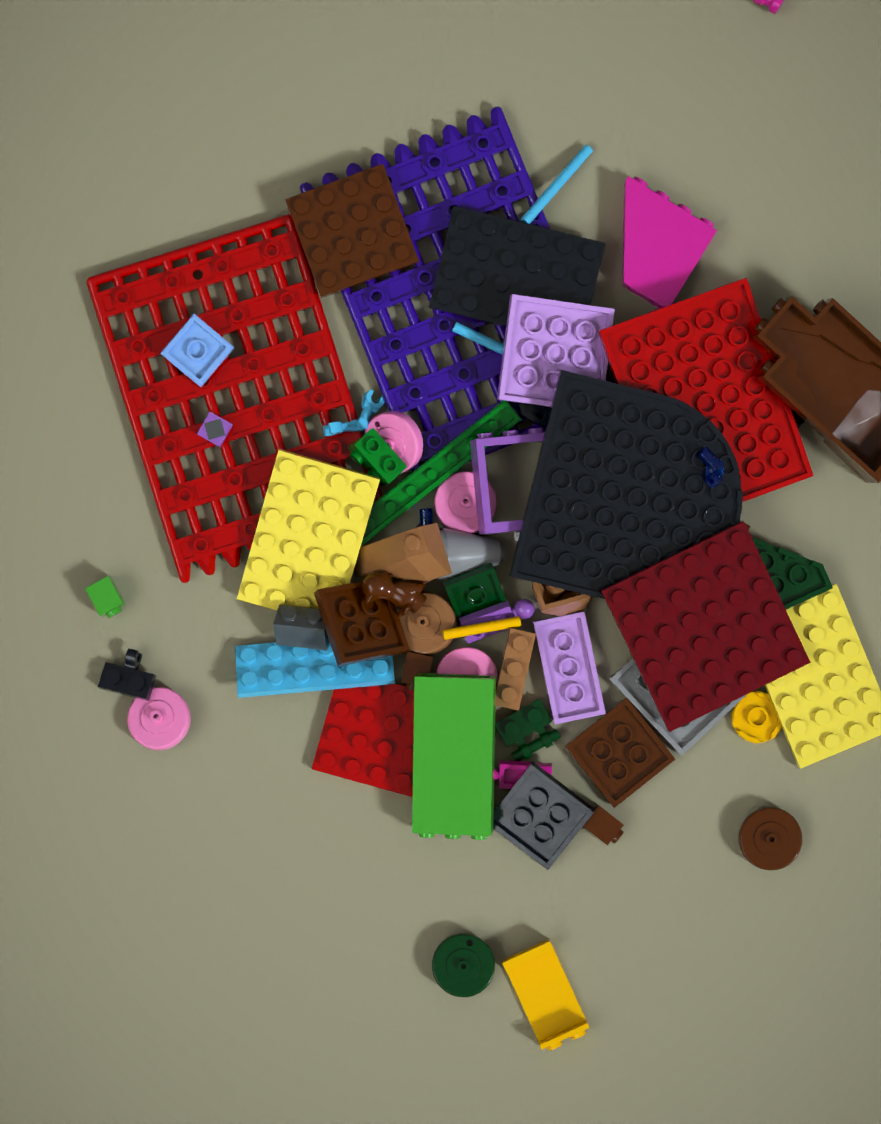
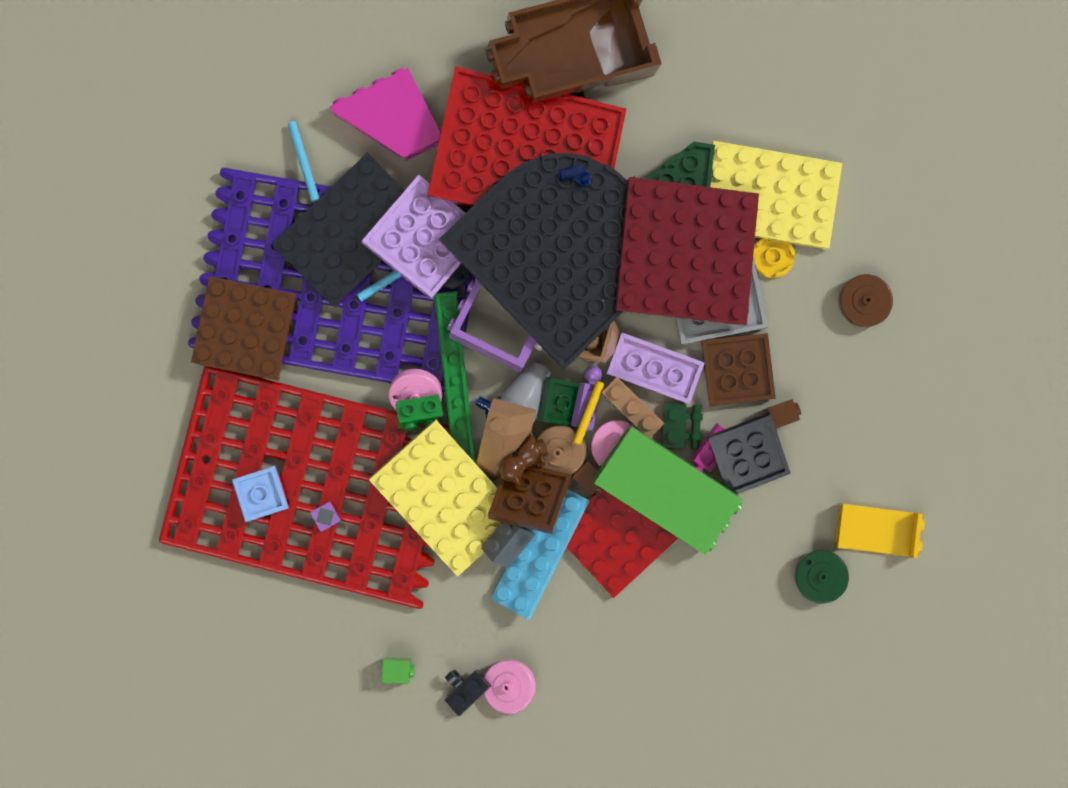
camera: 55 degrees left, 0 degrees up
(369, 408) = (387, 409): medium azure piece -> none
(457, 502) = (488, 375): bright pink wheel -> none

